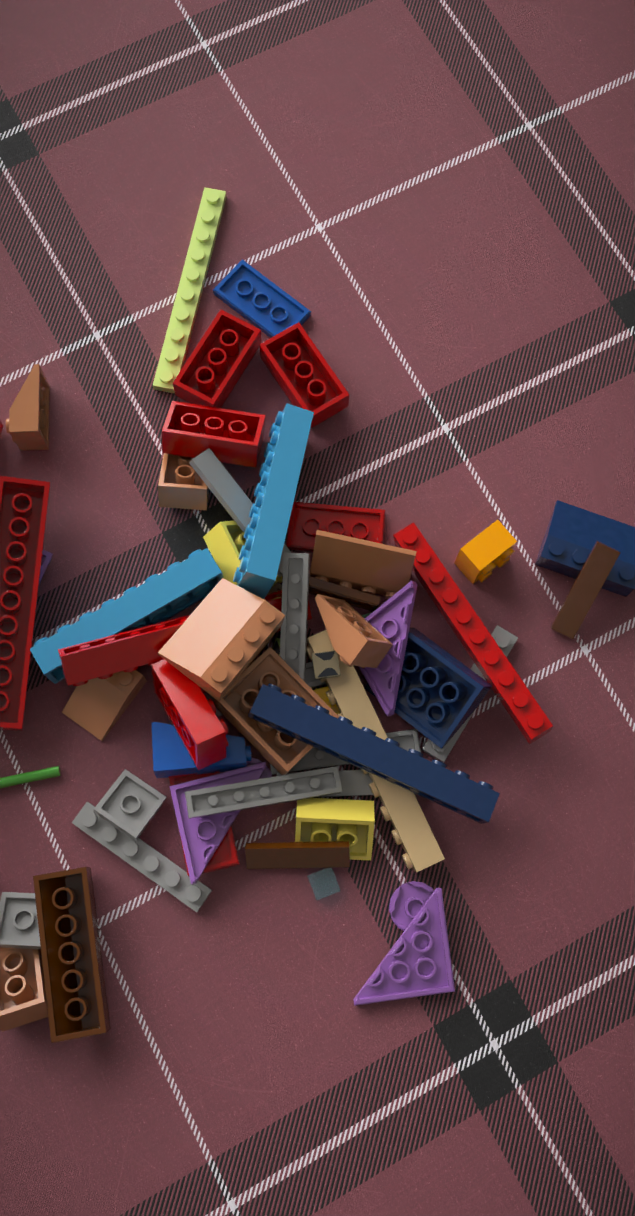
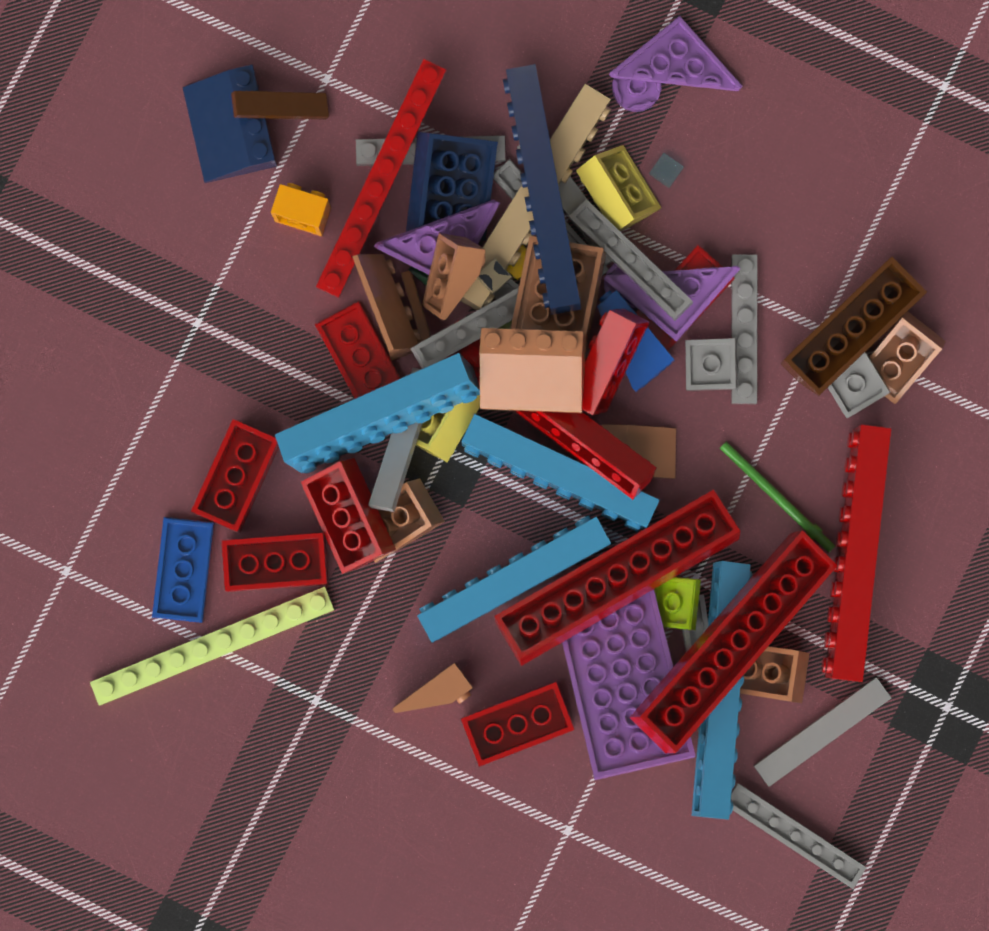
camera: 125 degrees left, 10 degrees up
(72, 526) = (511, 581): none -> dark azure brick
(297, 855) = (659, 203): reddish brown tile -> none

